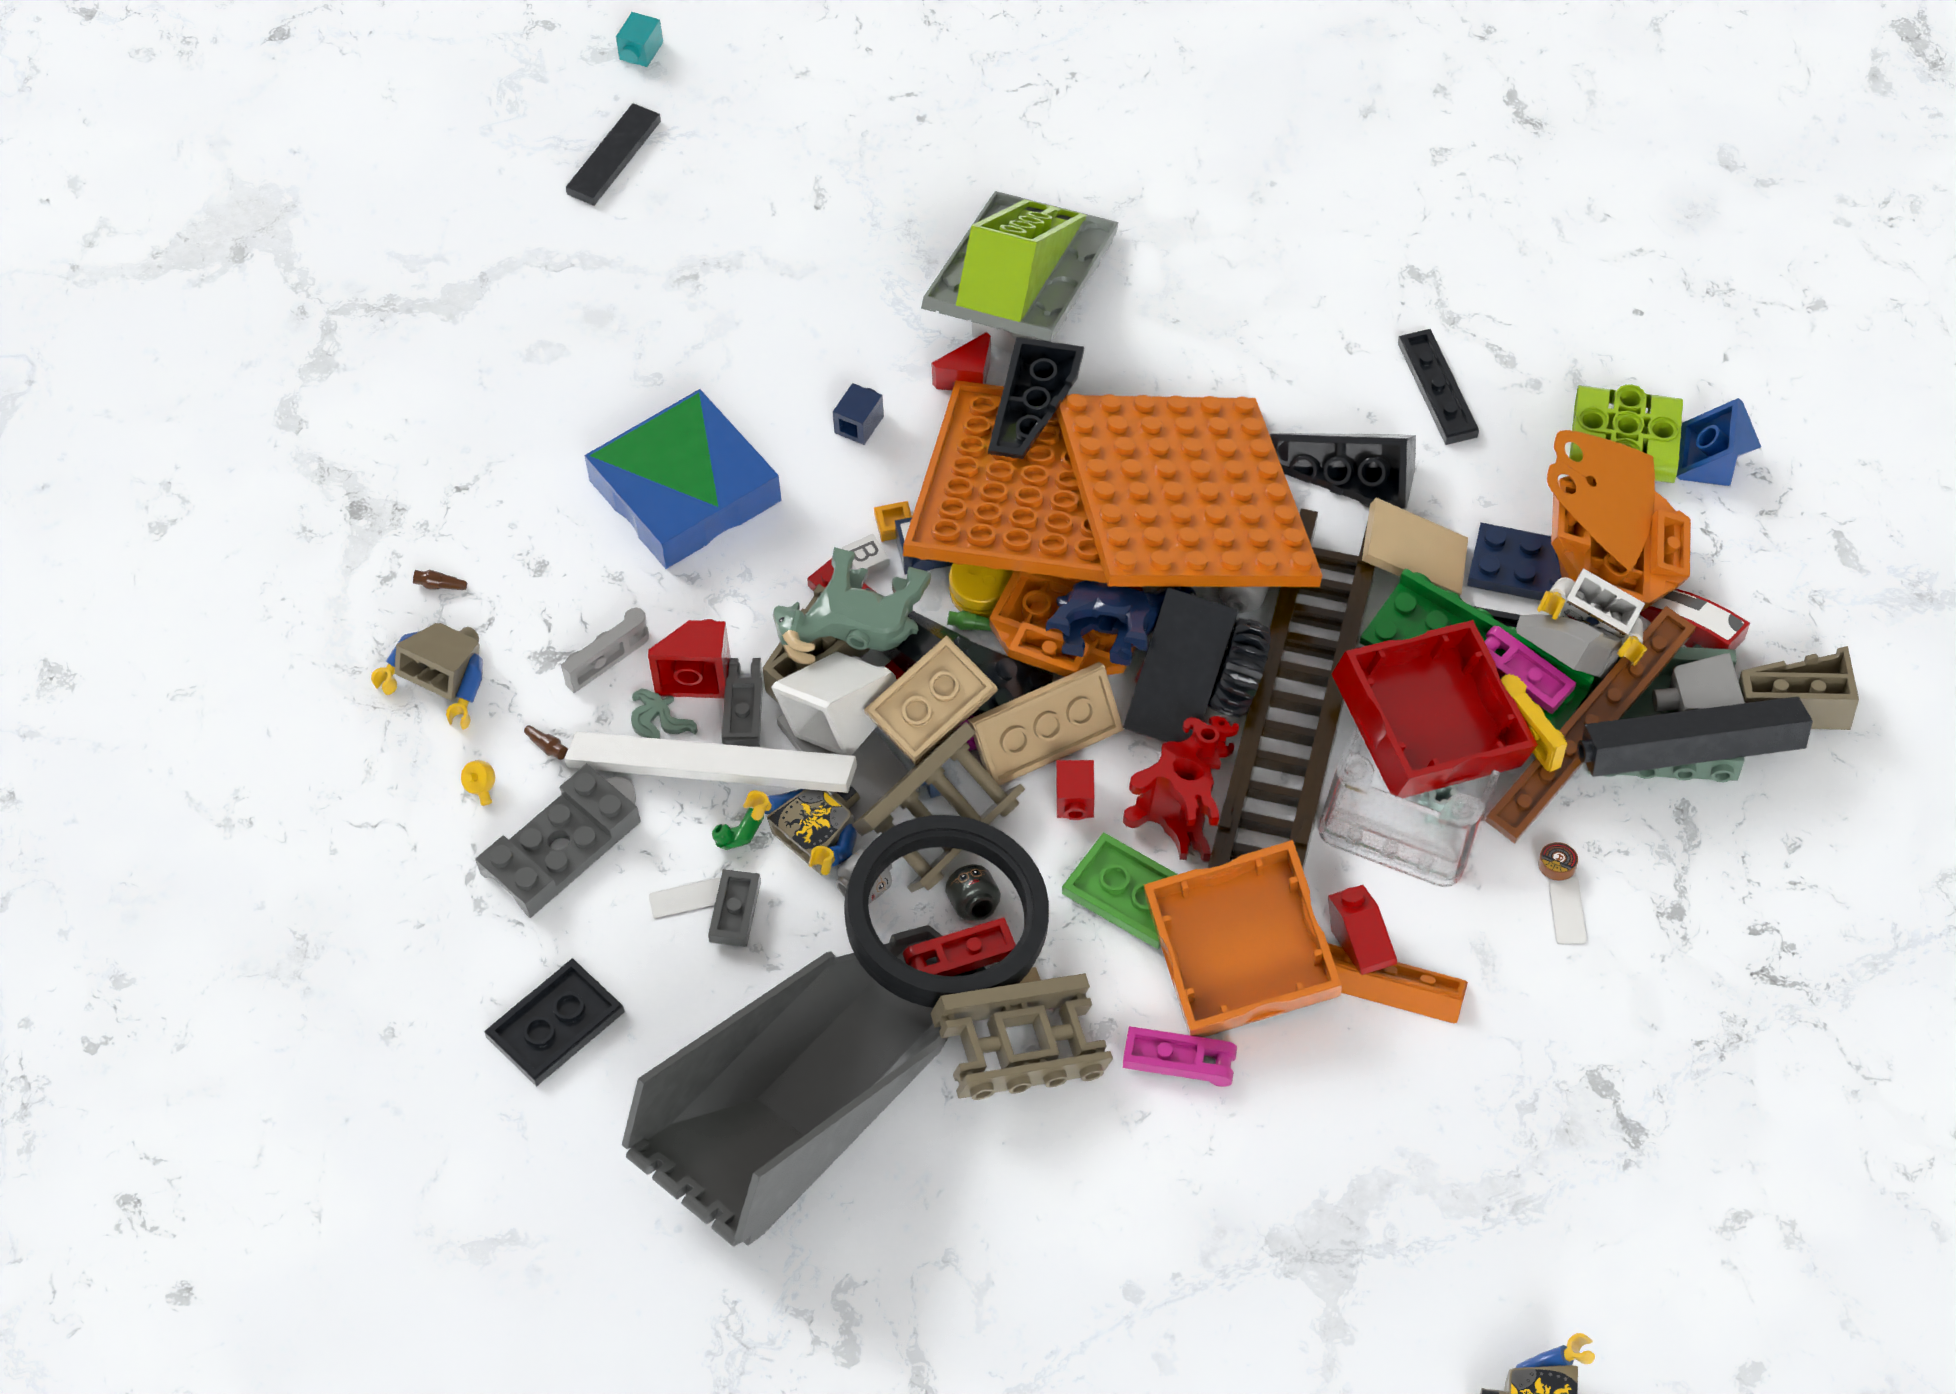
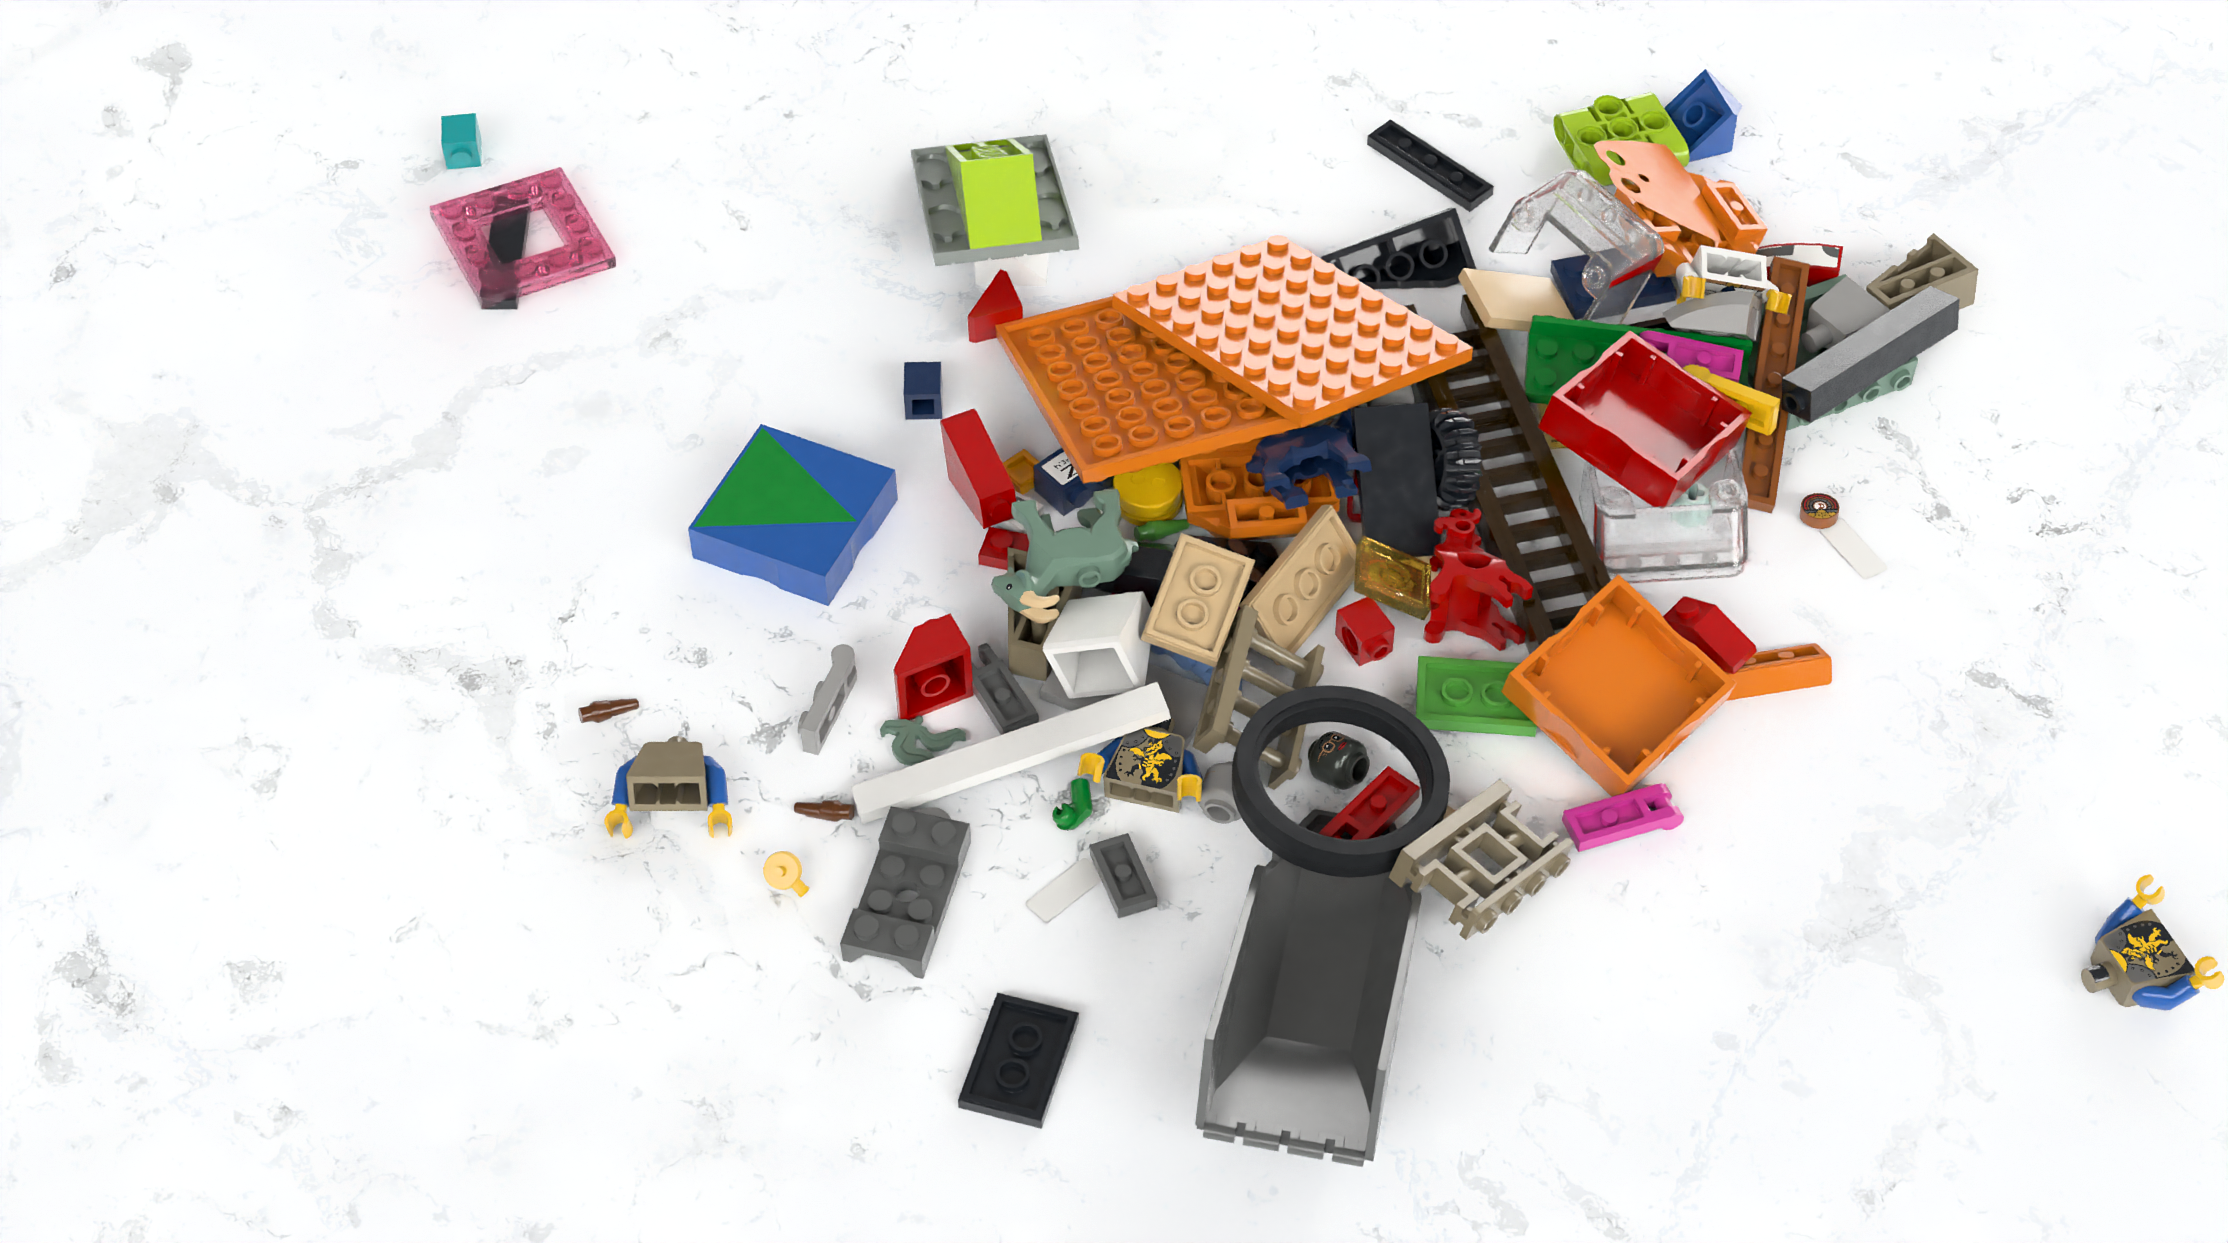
camera: 30 degrees left, 5 degrees down
(667, 181) = (583, 249): none -> clear pink plate
(846, 501) = (977, 468): none -> red slope
(1033, 390) = (1088, 300): black wedge -> none
(1122, 749) = (1392, 577): none -> clear yellow tile
(1514, 516) = (1617, 241): none -> clear windscreen

